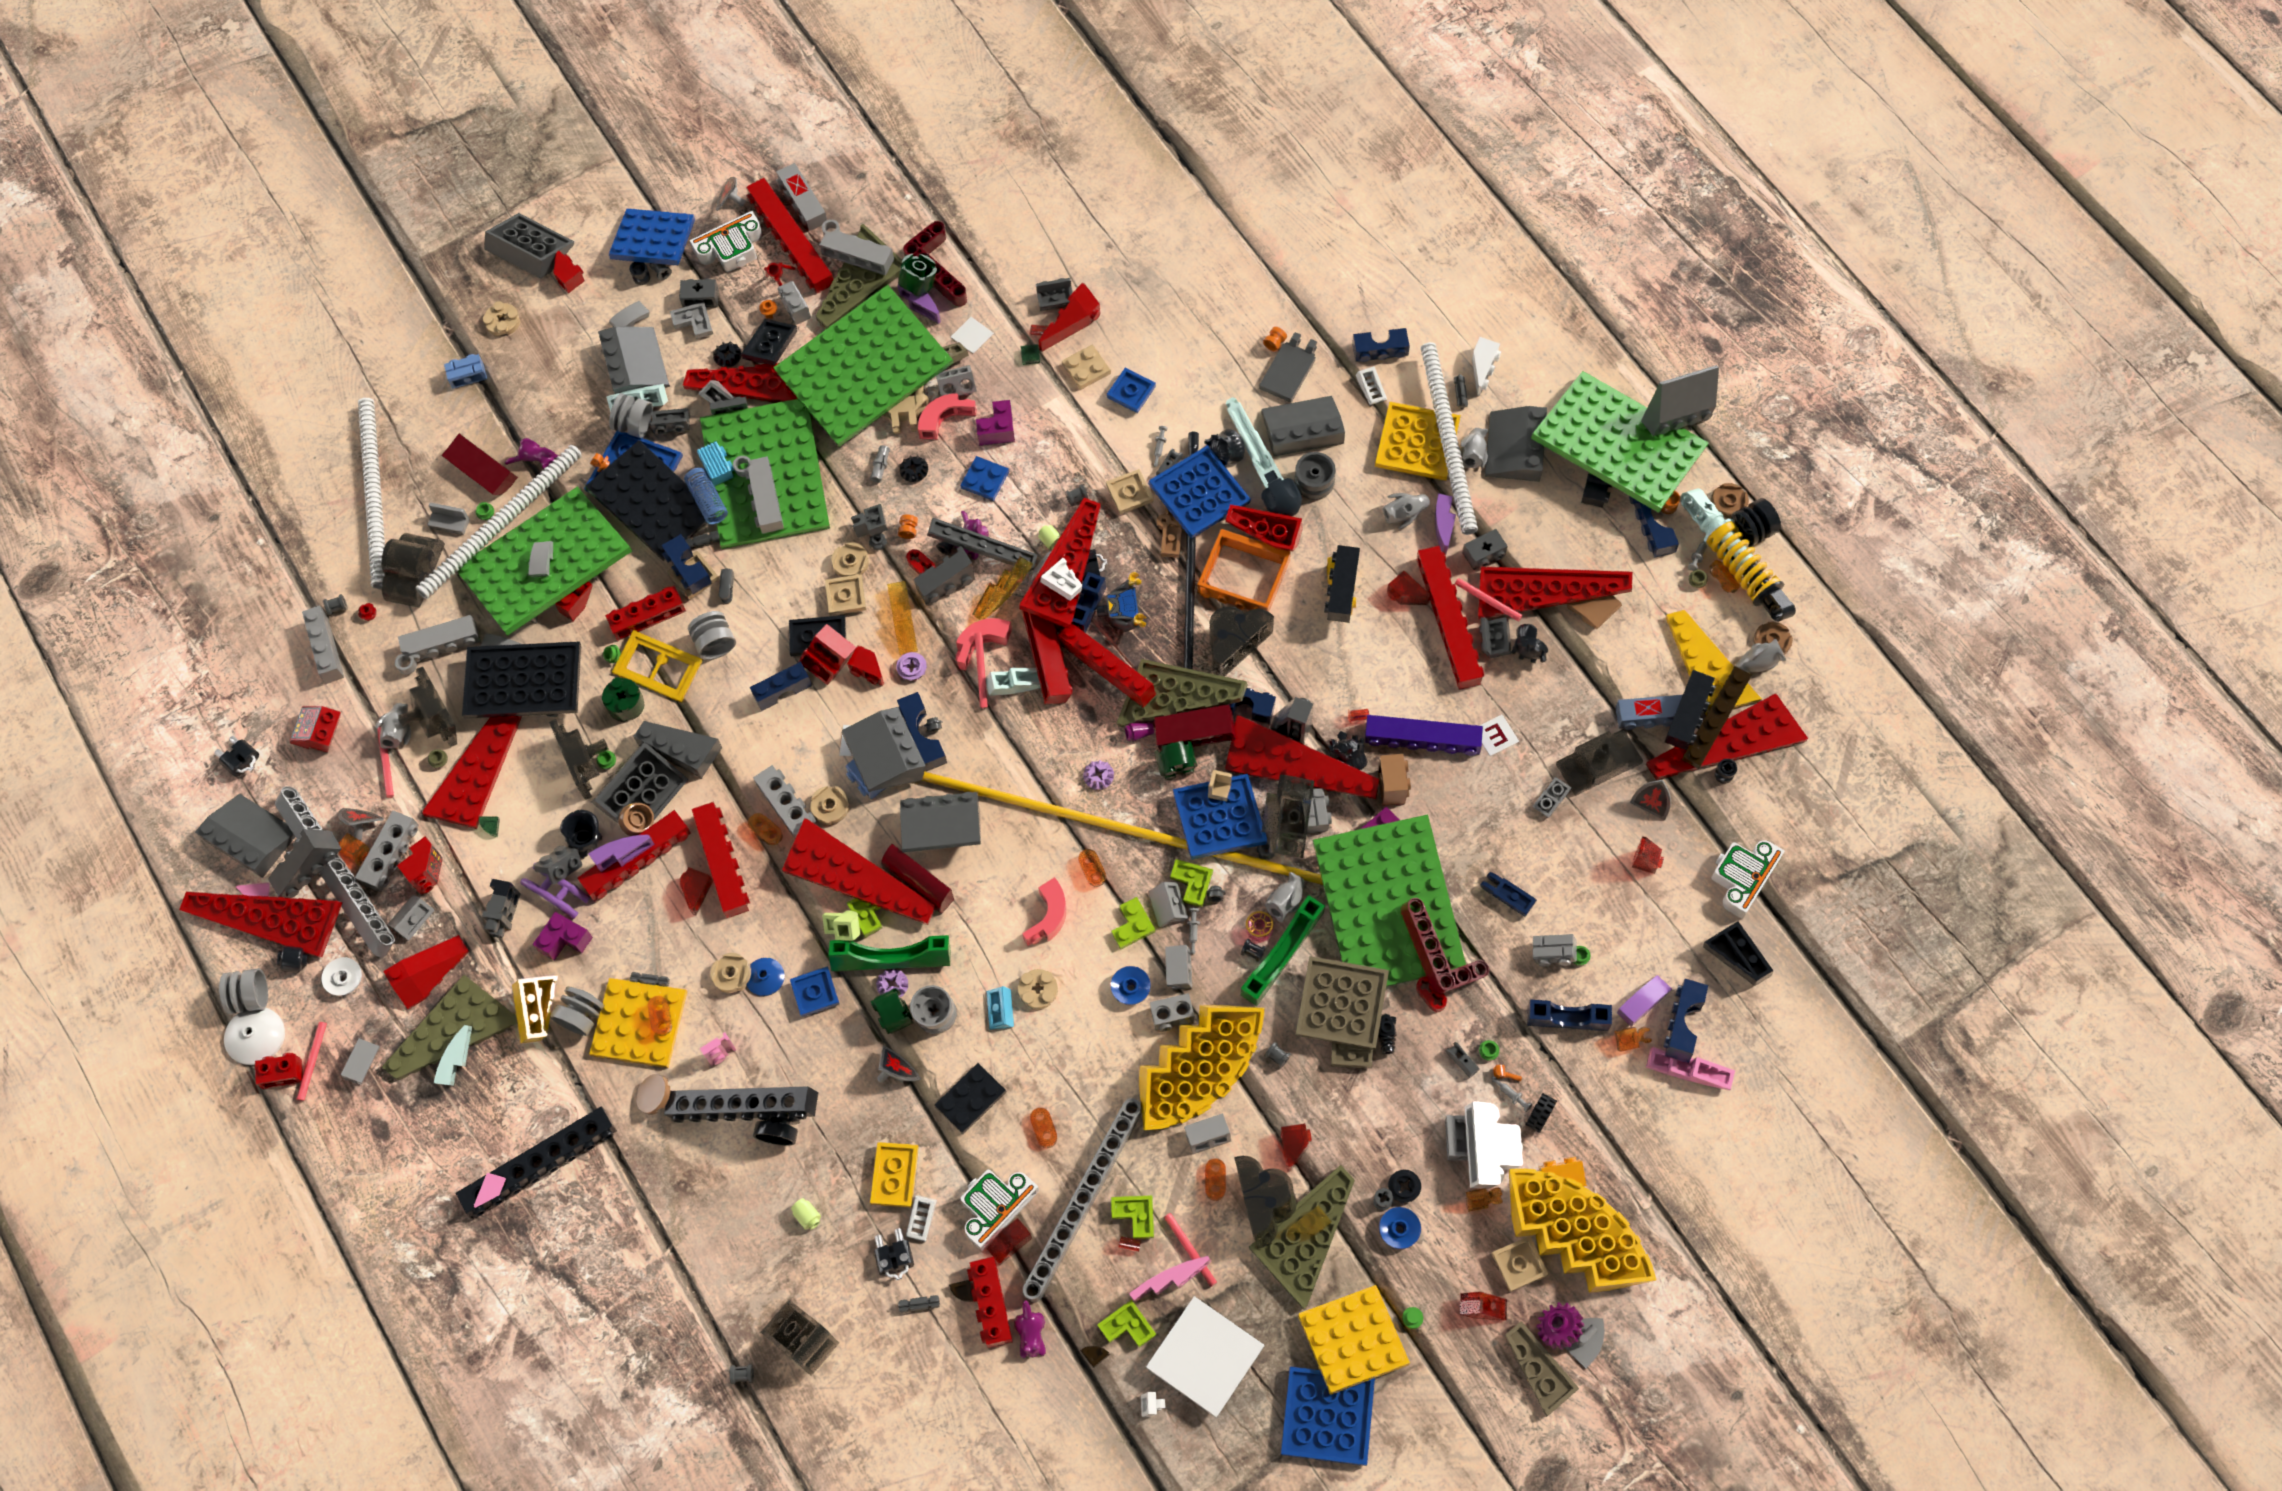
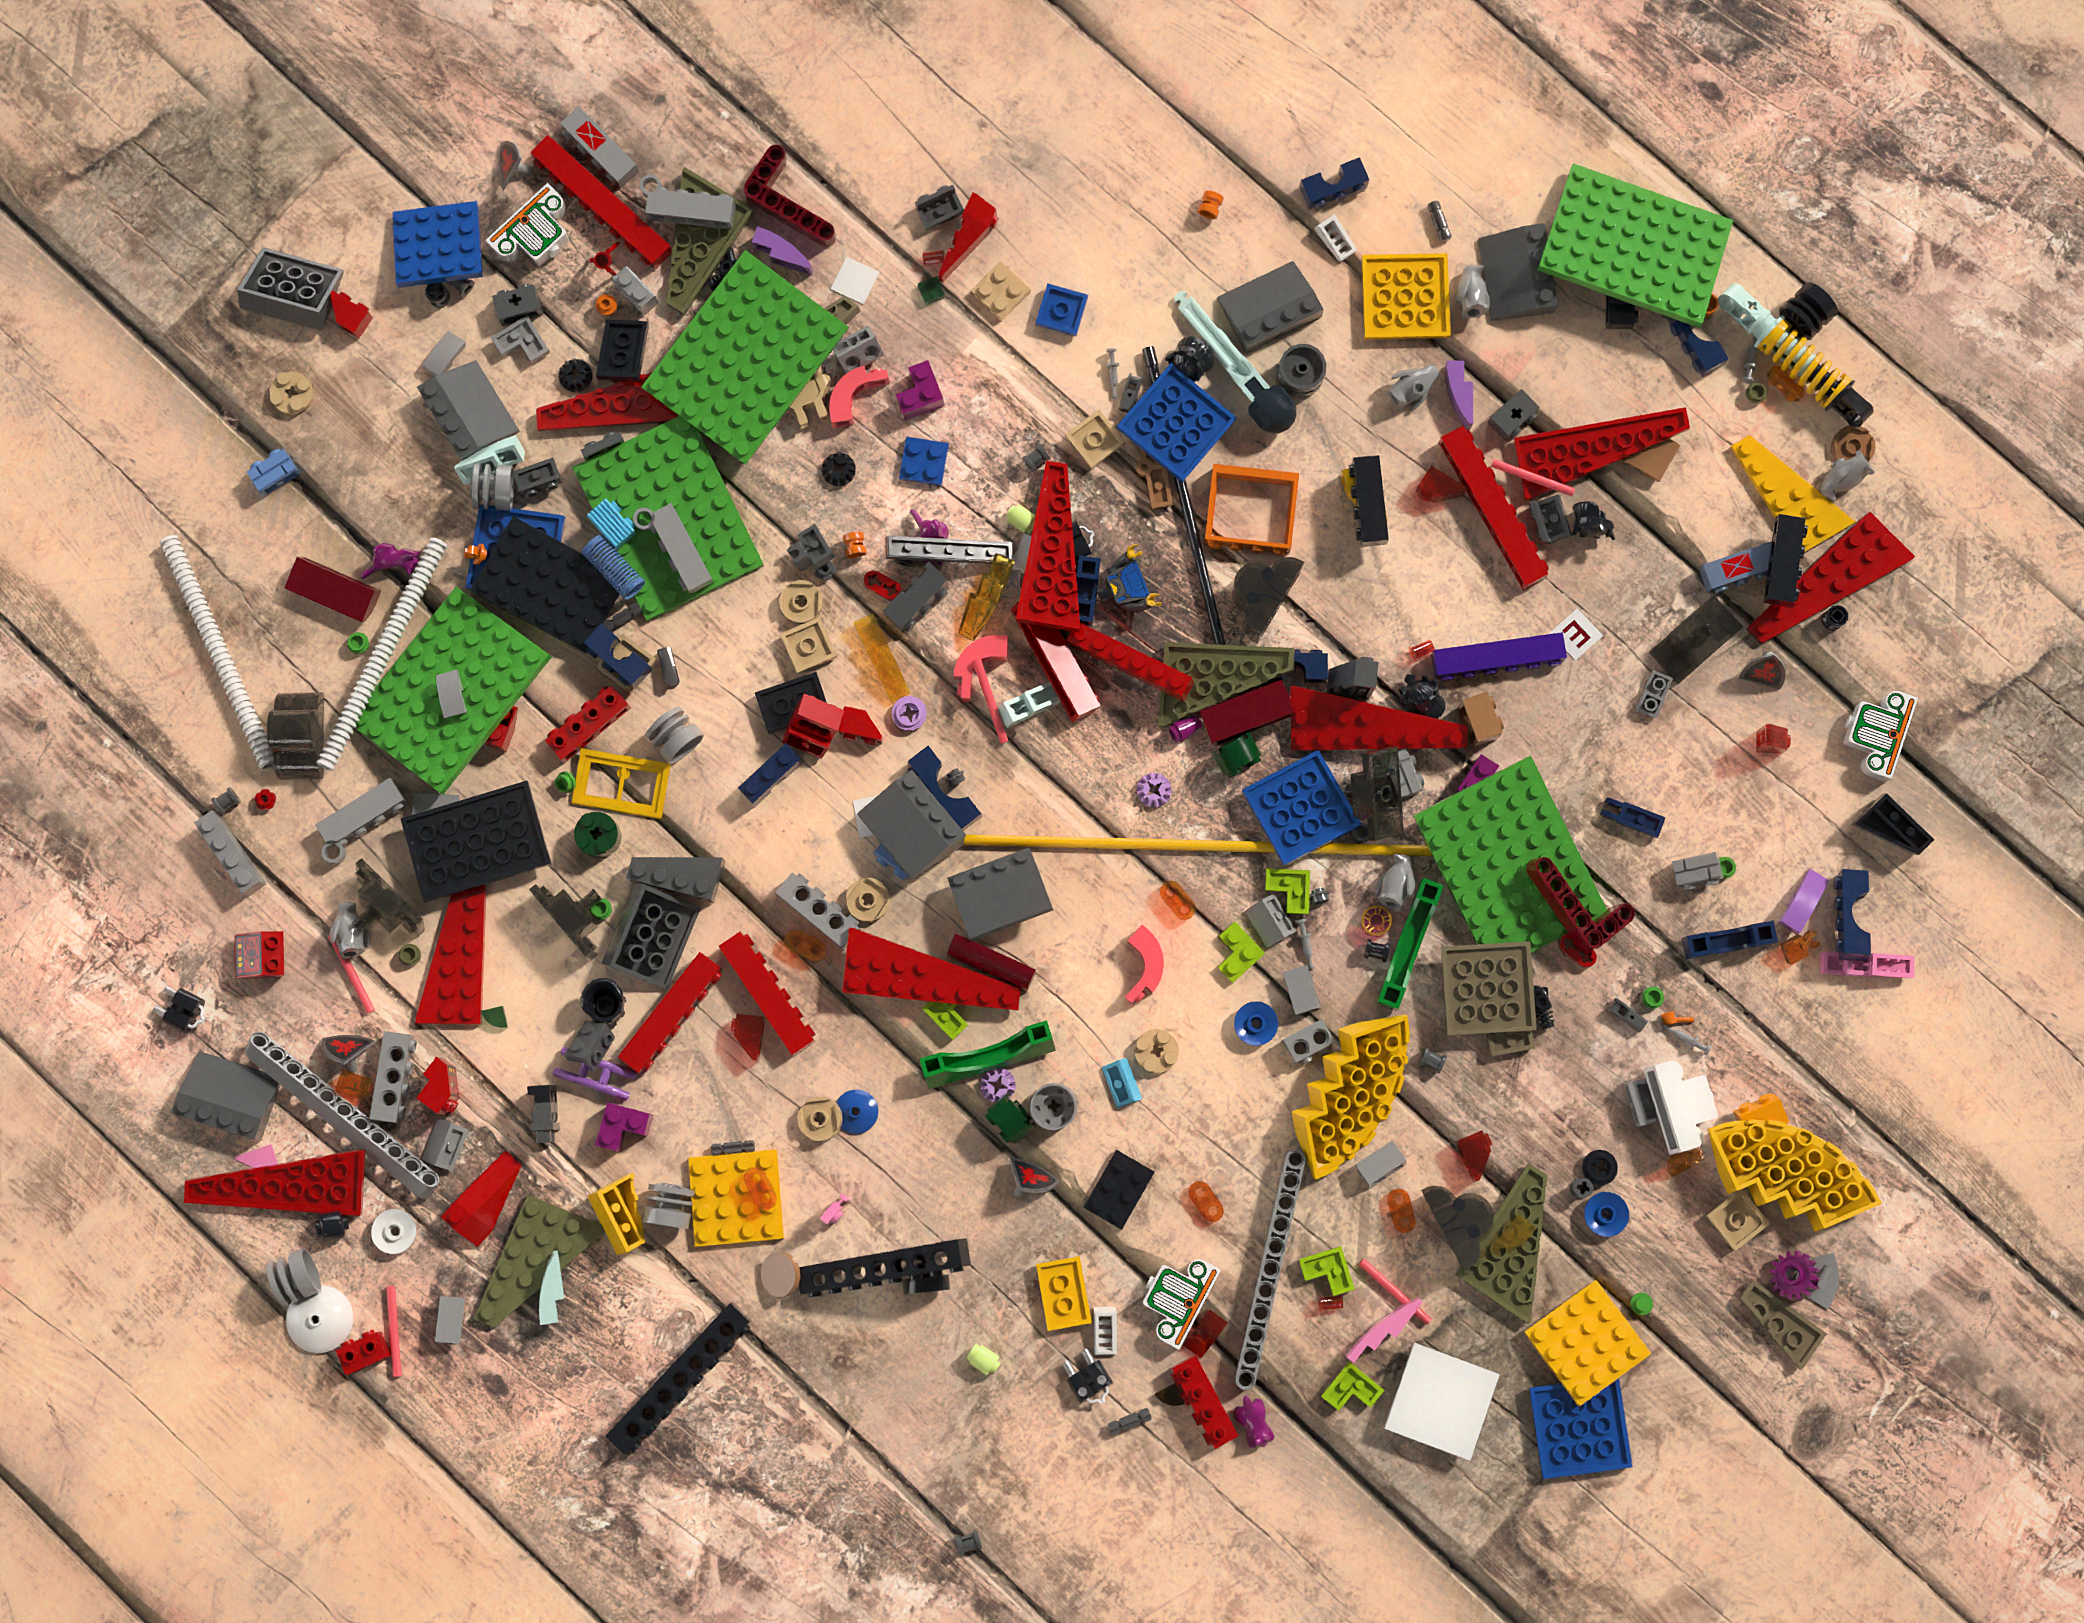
camera: 15 degrees left, 15 degrees up
(304, 861) = (309, 1118): dark grey wedge -> none
(448, 519) = (319, 664): light grey panel -> none
(490, 1188) = (641, 1422): bright pink sticker -> none
(620, 850) = (657, 1016): medium lavender slope -> none
(635, 818) = (659, 972): medium nougat piece -> none
(714, 392) = (583, 433): light grey slope -> none
(800, 1337) = (1018, 1491): clear smoke brick -> none
(814, 991) = (917, 1116): blue plate -> none
(843, 925) = (928, 1035): yellowish green brick -> none
(880, 464) = (798, 473): light grey pin -> none
(917, 274) = (774, 225): dark green brick -> none
(1062, 580) = (1056, 576): white wing -> none
(1094, 1354) = (1326, 1426): dark brown tile -> none
(1150, 1404) = (1397, 1463): white tile -> none
(1219, 785) = (1294, 775): tan panel -> none
(1271, 528) = (1268, 450): red wedge -> none
(1289, 369) = (1236, 239): dark grey tile -> none
(1449, 439) = (1441, 286): white piece -> none
(1483, 358) = (1455, 174): white slope -> none
(1483, 1306) = (1710, 1274): clear red slope -> none
(1541, 1112) = (1724, 1055): black tyre -> none
(1682, 401) = (1698, 185): dark grey slope -> none
(1717, 717) = (1814, 556): dark brown plate -> none
(1729, 498) = (1771, 286): medium nougat tile -> none

